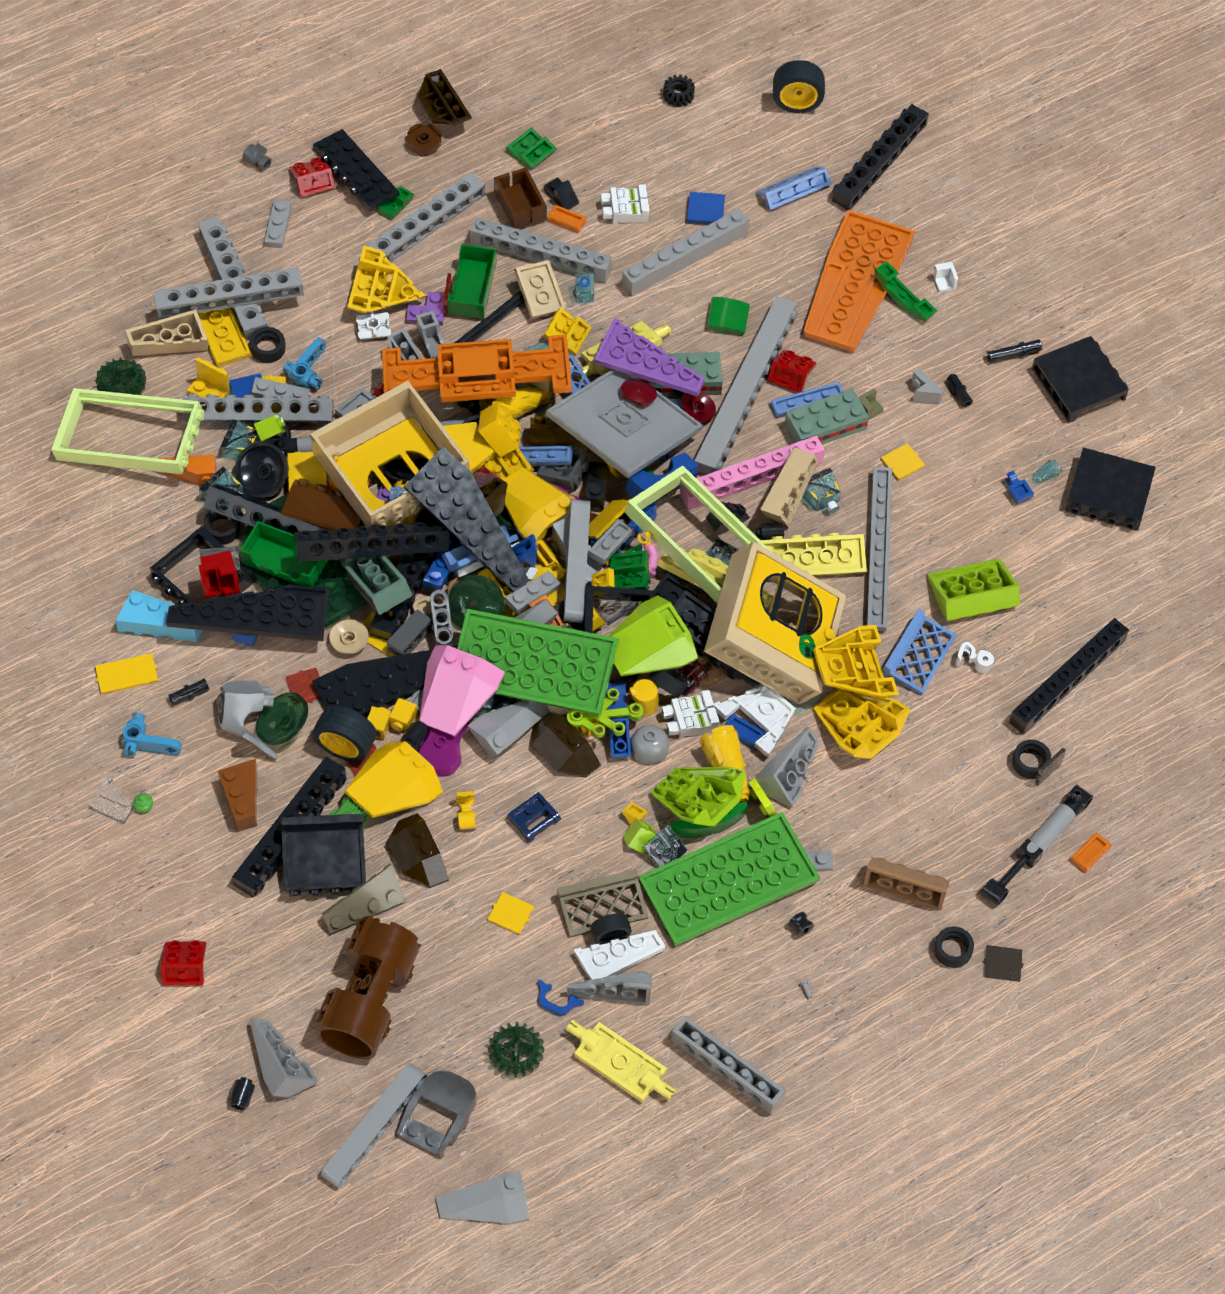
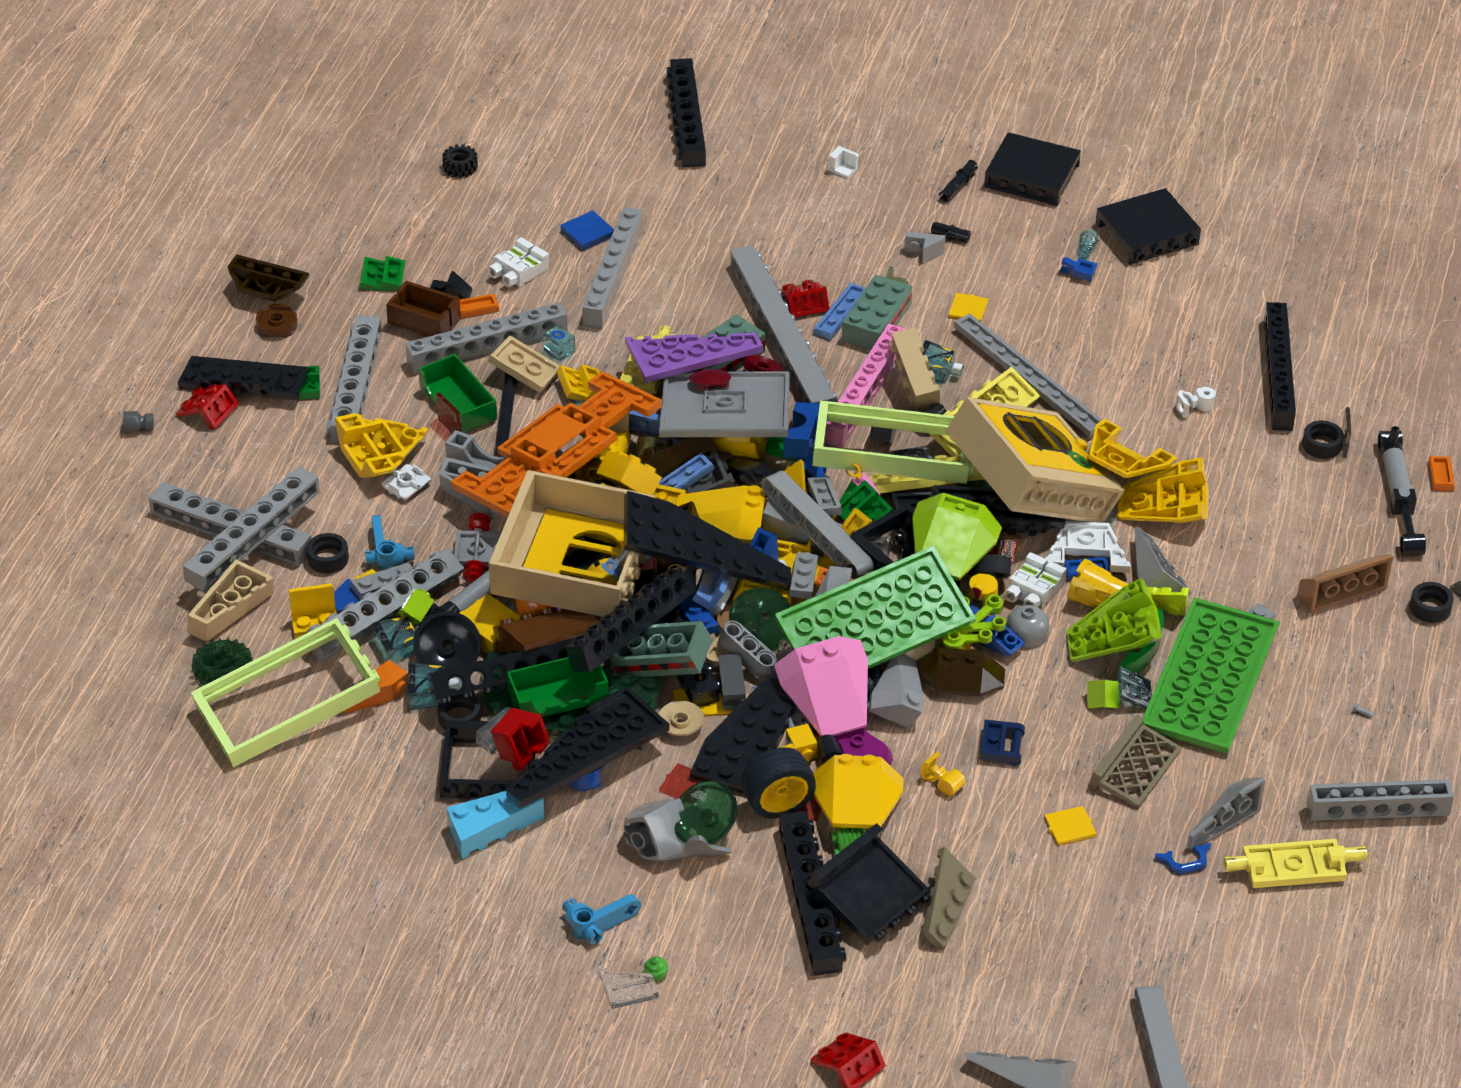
camera: 40 degrees left, 15 degrees down
(126, 673) = (511, 884): yellow piece -> none
(200, 686) = (588, 857): black pin -> none
(224, 336) = (286, 571): yellow tile -> none
(240, 792) = (738, 897): dark orange wedge -> none
(278, 223) = (219, 460): light grey plate -> none
(355, 1018) = (1041, 951): reddish brown cylinder -> none
(417, 852) = (936, 826): dark brown wedge -> none
(435, 302) = (435, 450): medium lavender plate -> none
(448, 1092) = (1196, 986): flat silver slope -> none
(492, 1200) = (1325, 1038): light grey wedge -> none
(516, 1032) = (1204, 920): clear green gear -> none
(610, 928) = (1170, 771): black tyre -> none
(618, 955) = (1194, 791): white wing -> none
(634, 811) = (1077, 683): yellow slope -> none
(728, 315) = (703, 291): green slope -> none
(795, 187) = (643, 171): medium blue fence -> none
(798, 86) = (566, 95): black wheel -> none
(801, 924) = (1304, 666): black wheel -> none
(848, 286) = (774, 206): orange wing -> none
(901, 294) = (851, 195): green slope -> none
(903, 648) = (1134, 427): medium blue fence -> none
(974, 589) = (1136, 354): lime slope -> none

